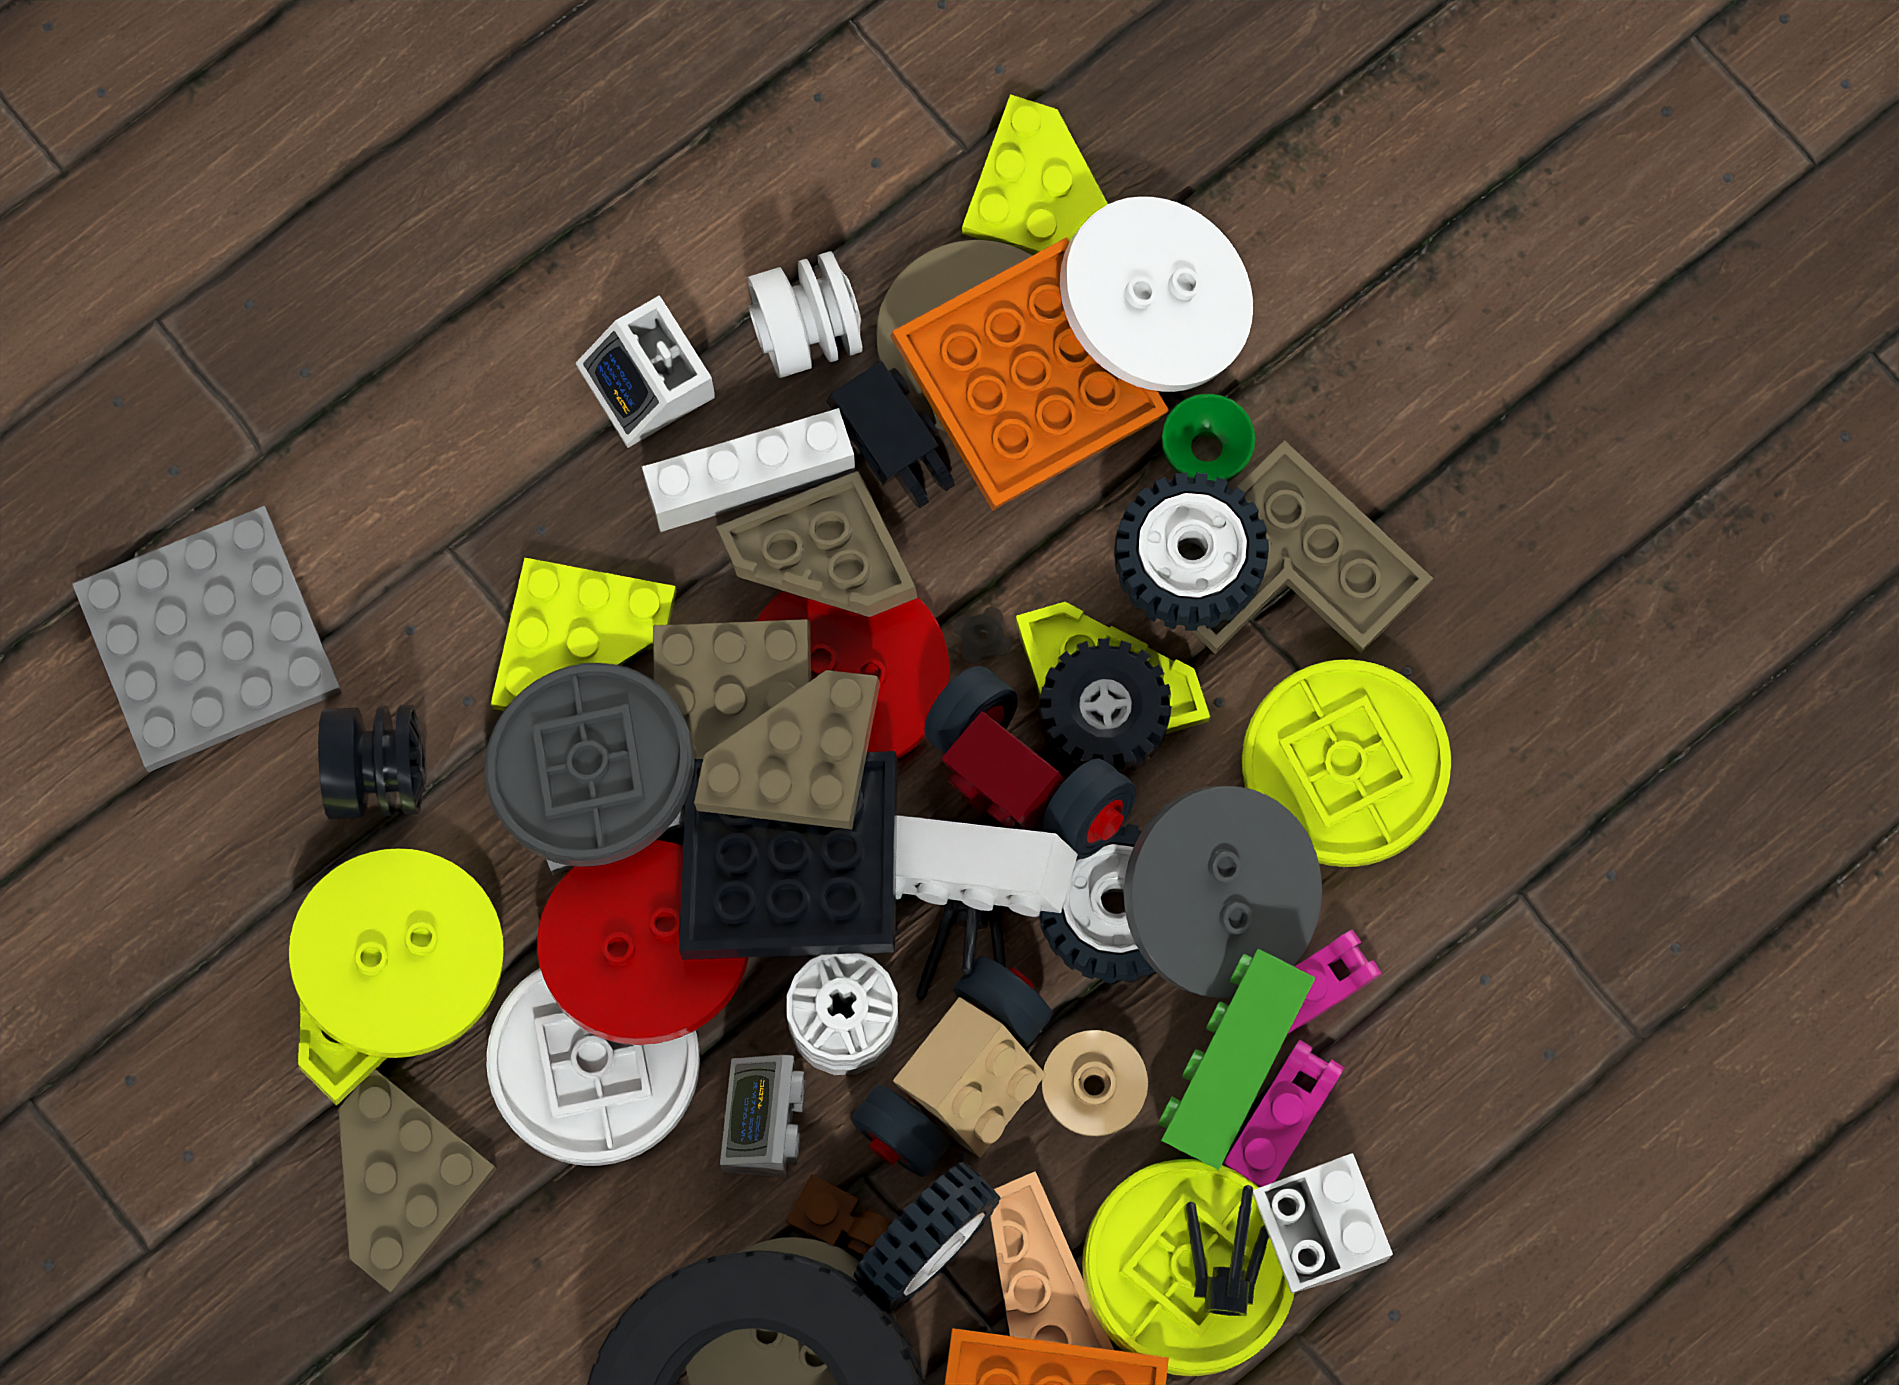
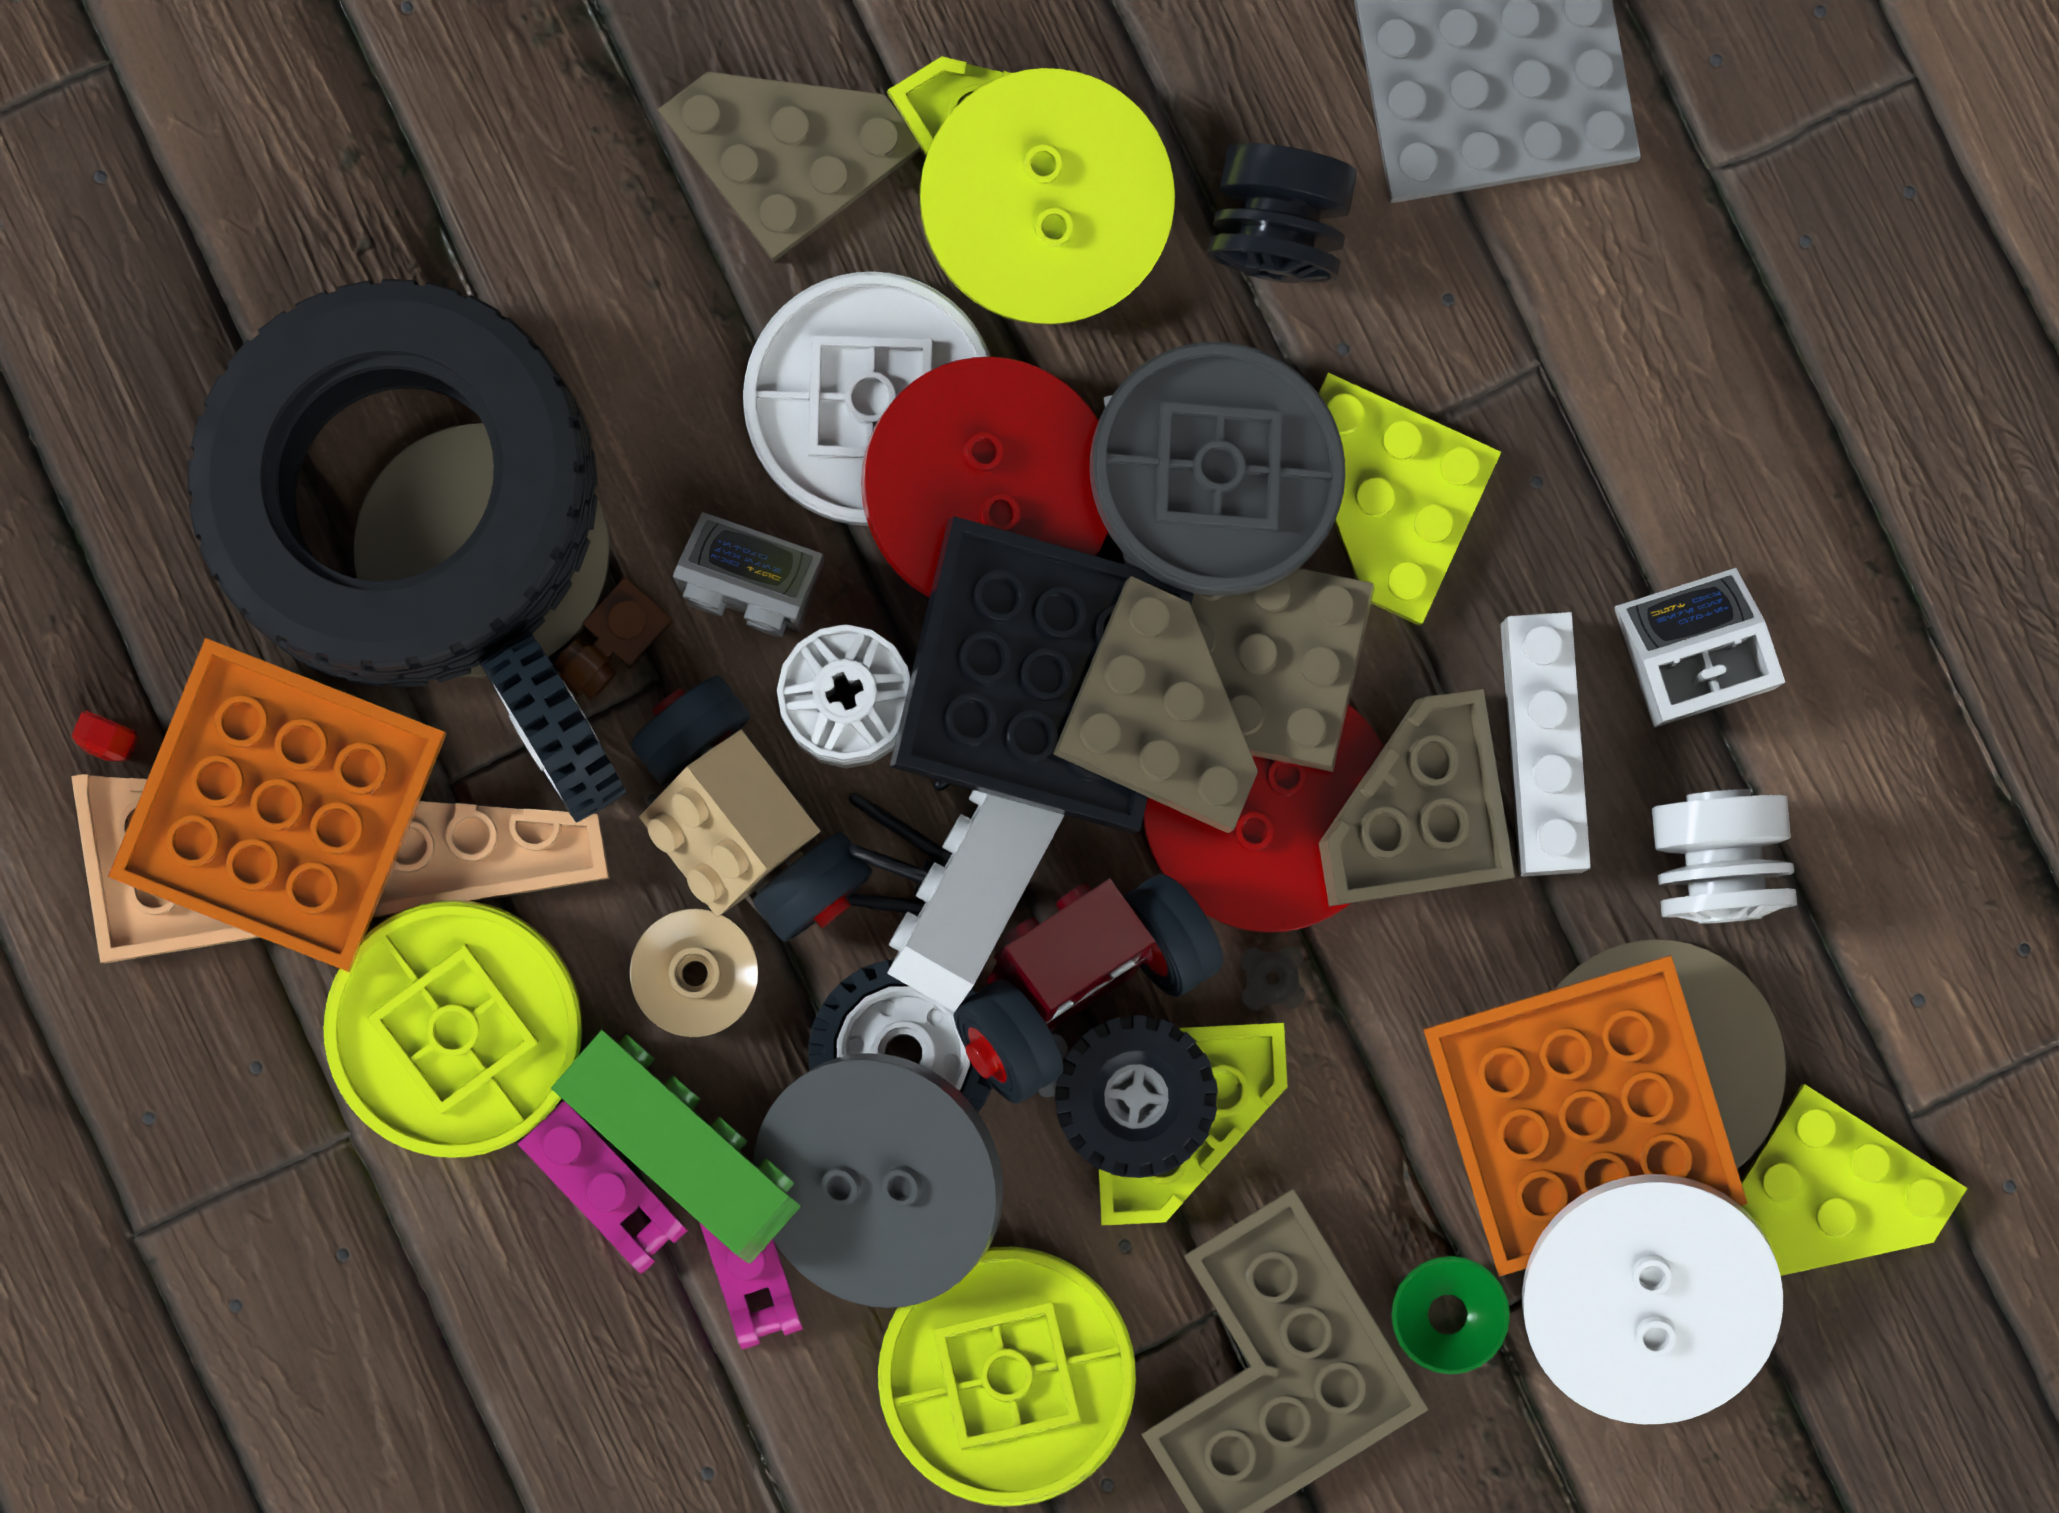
camera: 100 degrees right, 10 degrees up
(890, 430) = (1556, 925): black hinge -> none
(1184, 589) = (1359, 1262): wheel -> none
(1229, 1287) = (411, 1063): black plant -> none
(1322, 1224) = (459, 1191): white slope -> none

